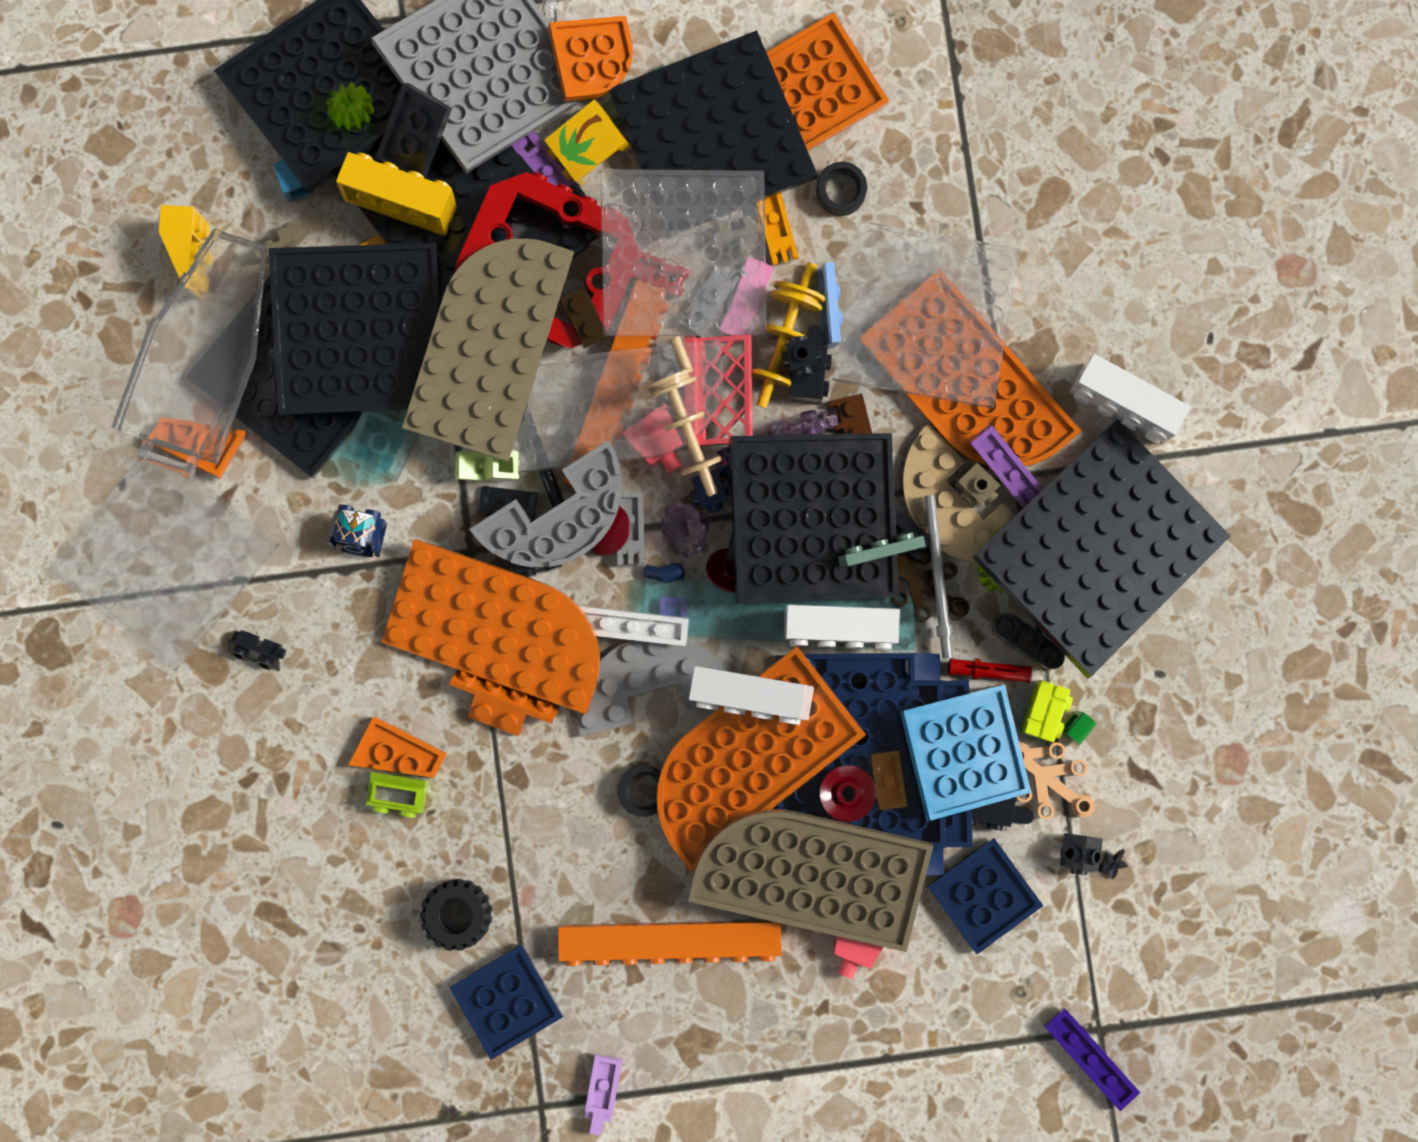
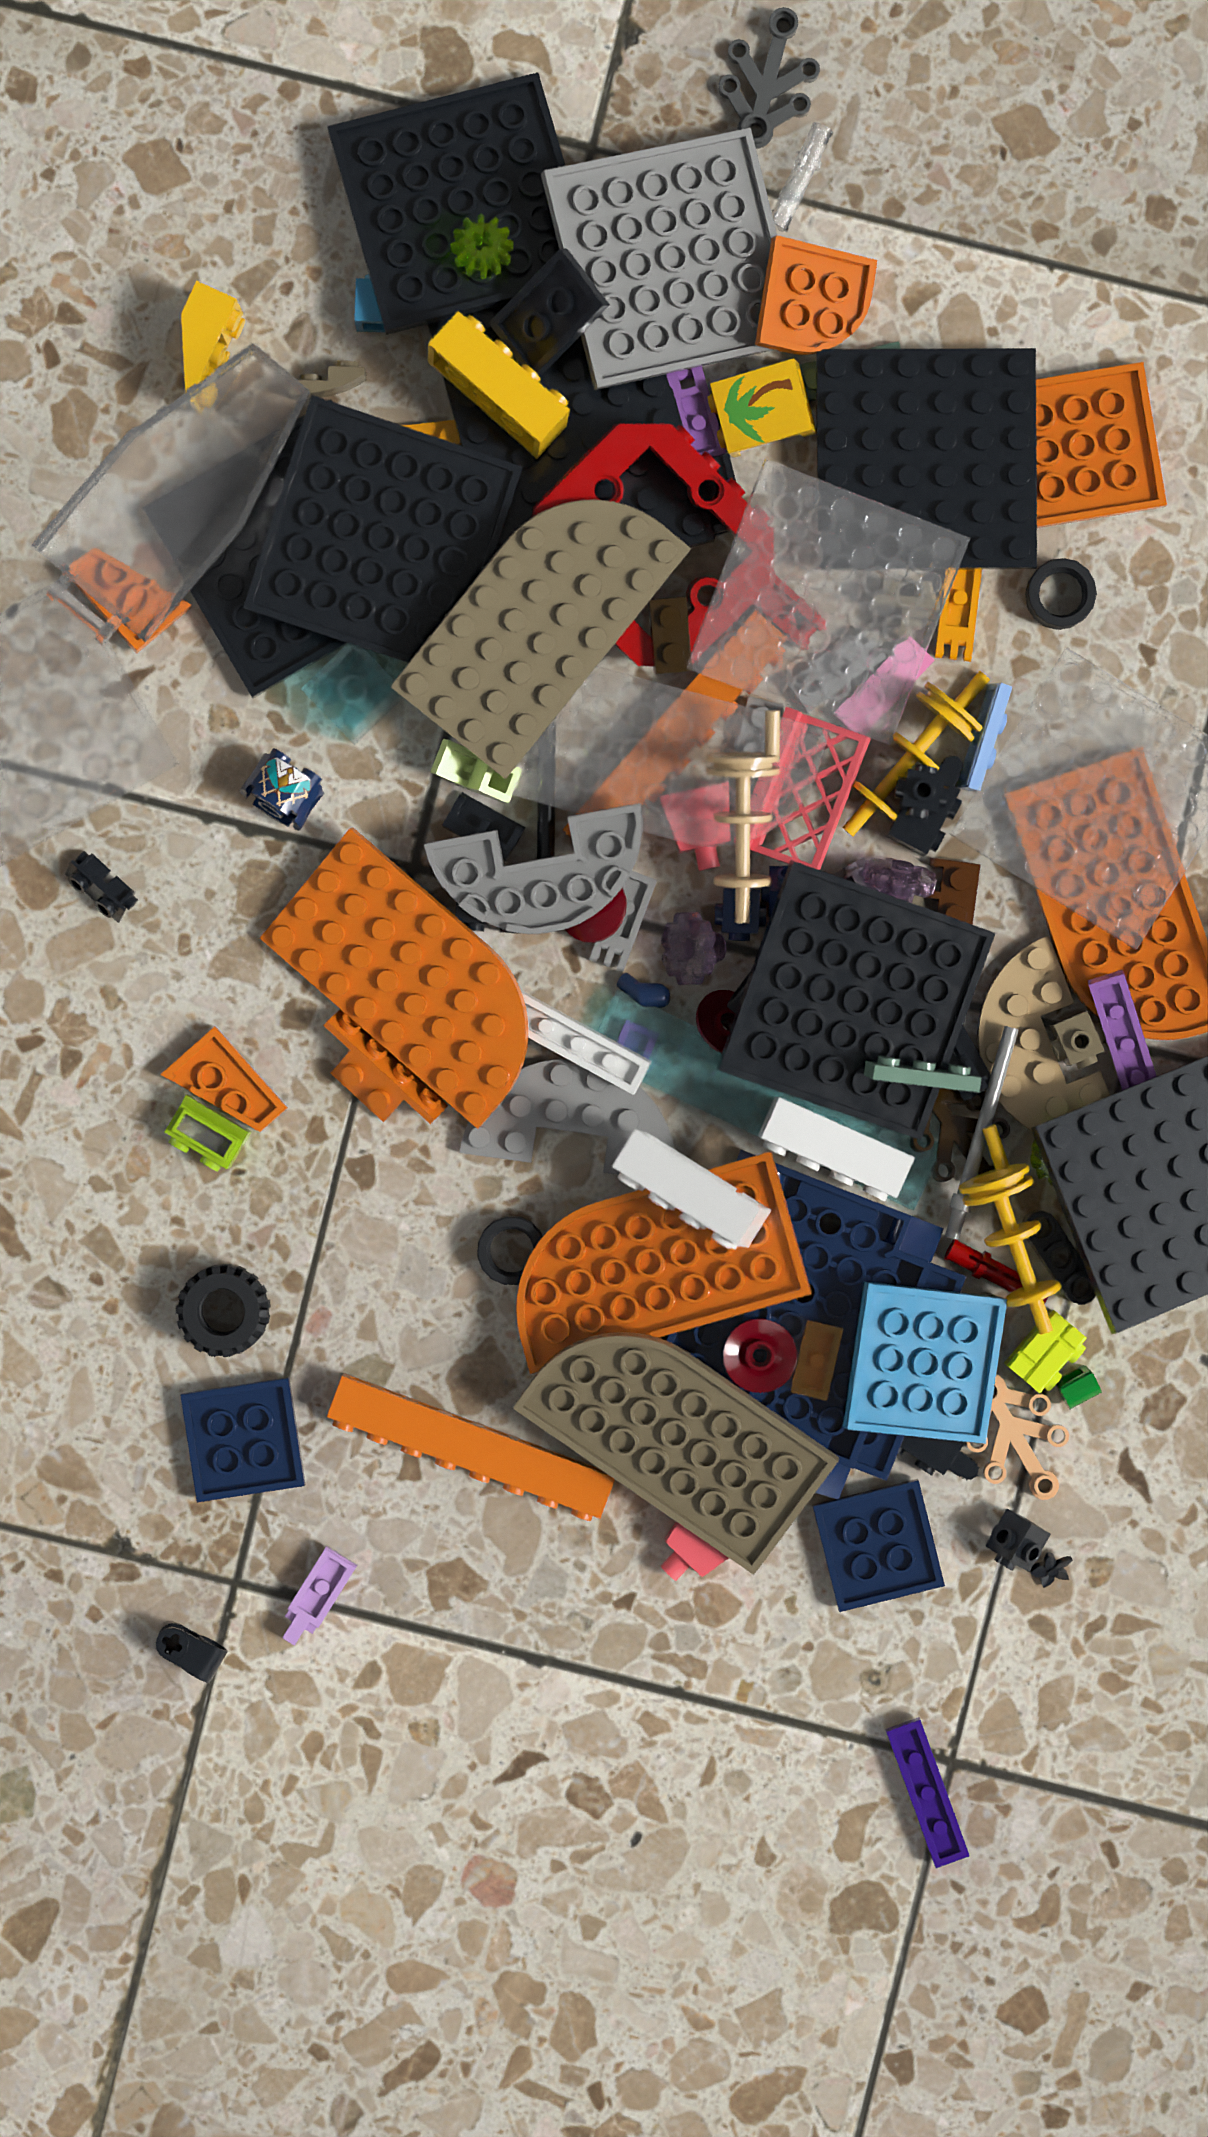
camera: 20 degrees right, 5 degrees up
(965, 608) = (996, 1187): none -> yellow piece

